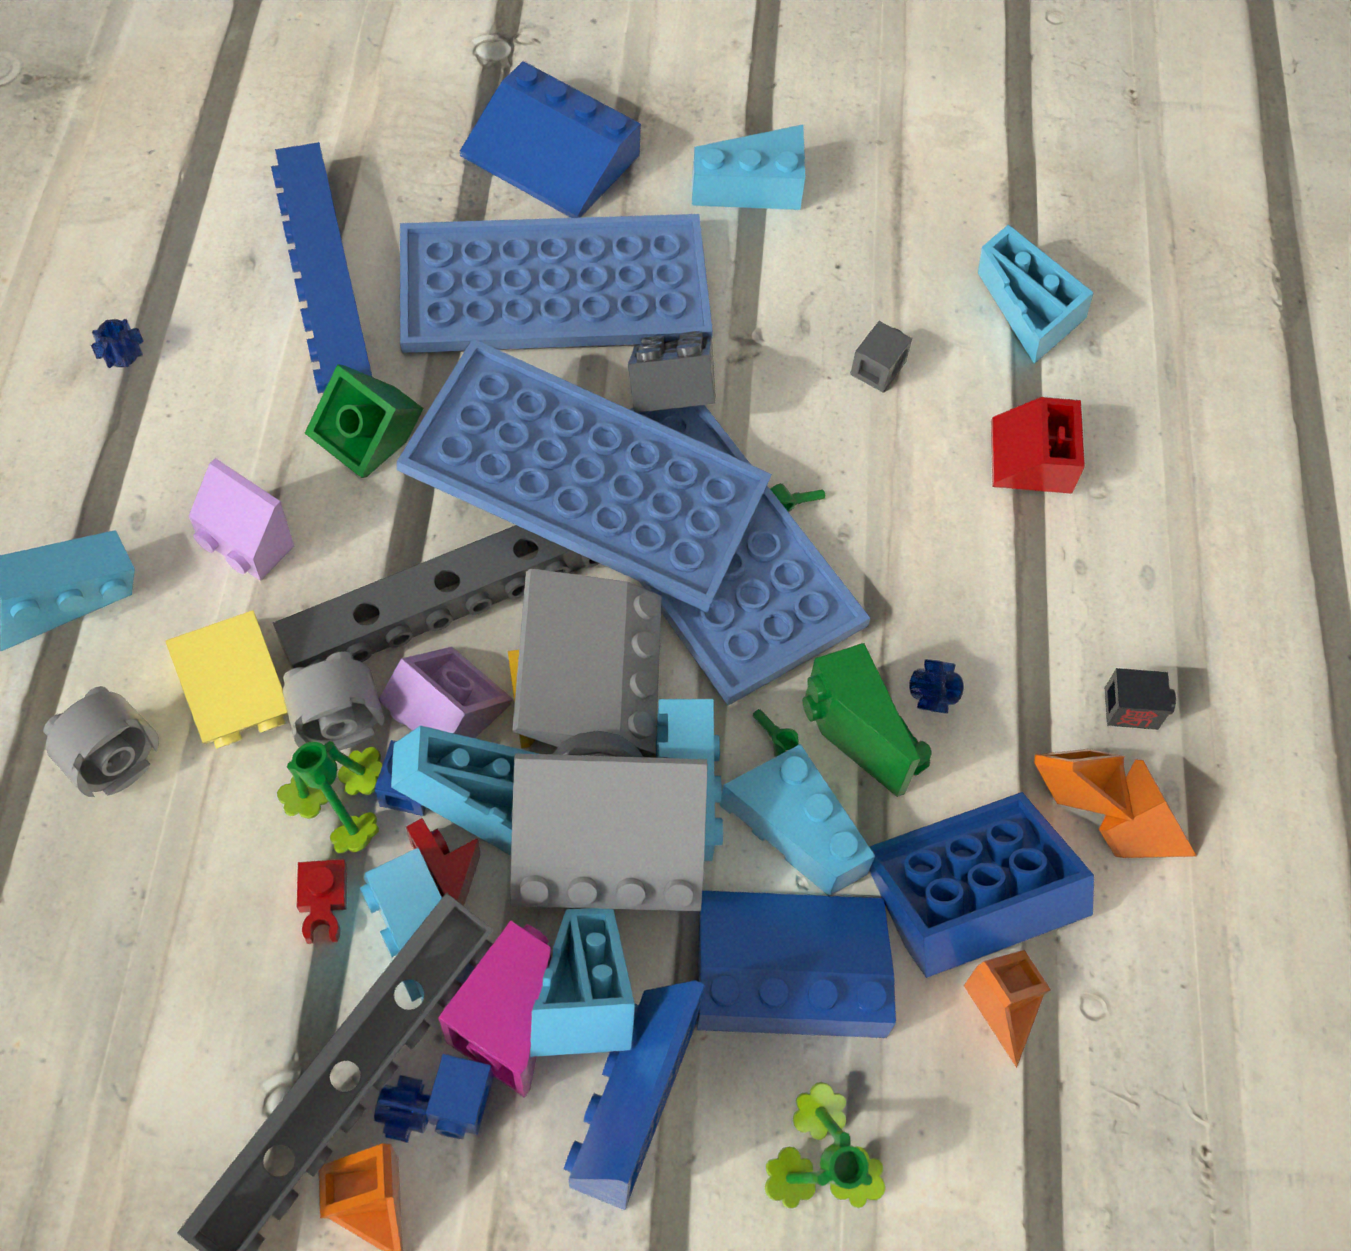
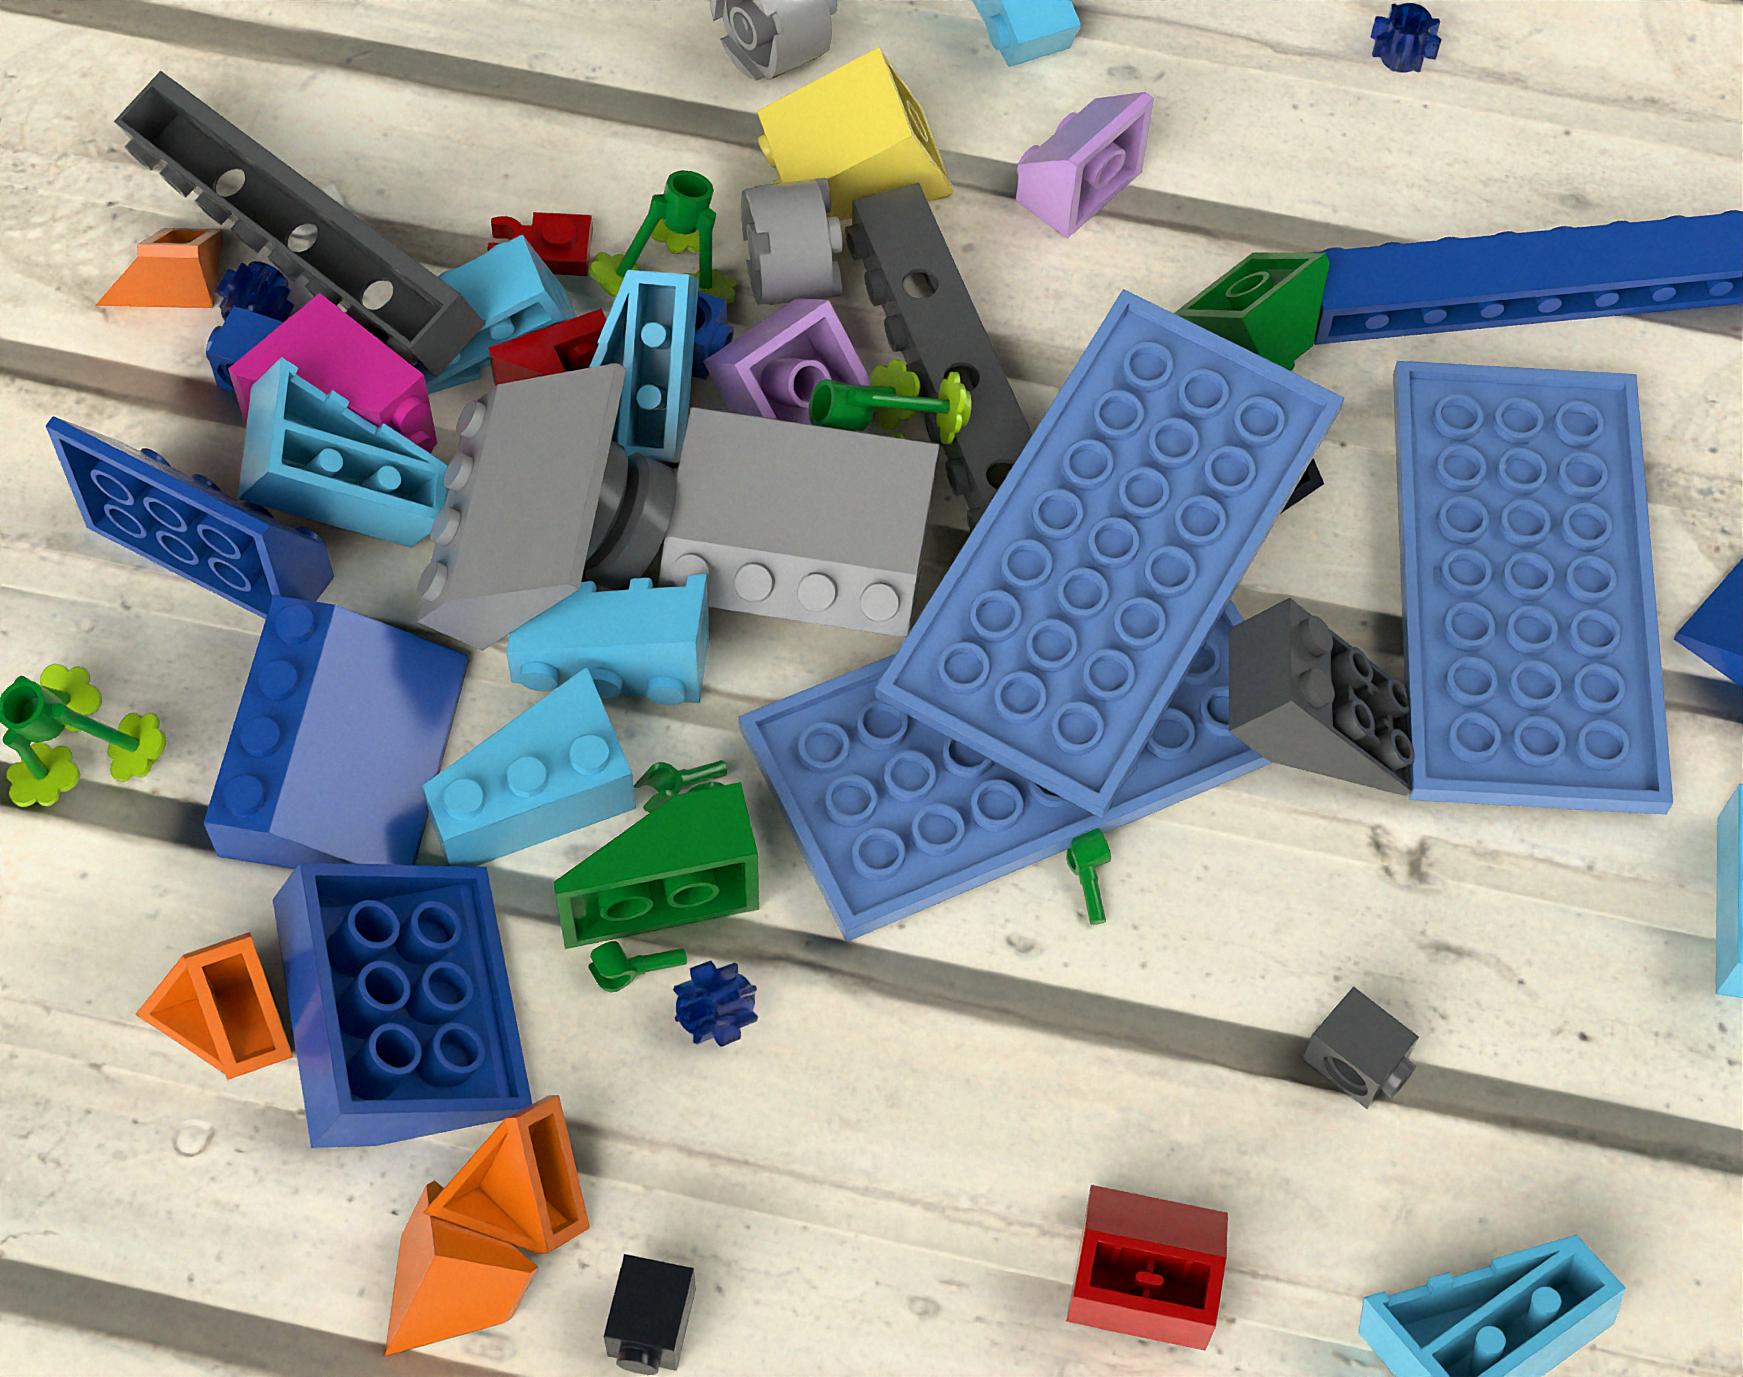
camera: 100 degrees right, 0 degrees up
(496, 639) = (894, 399): none -> plant

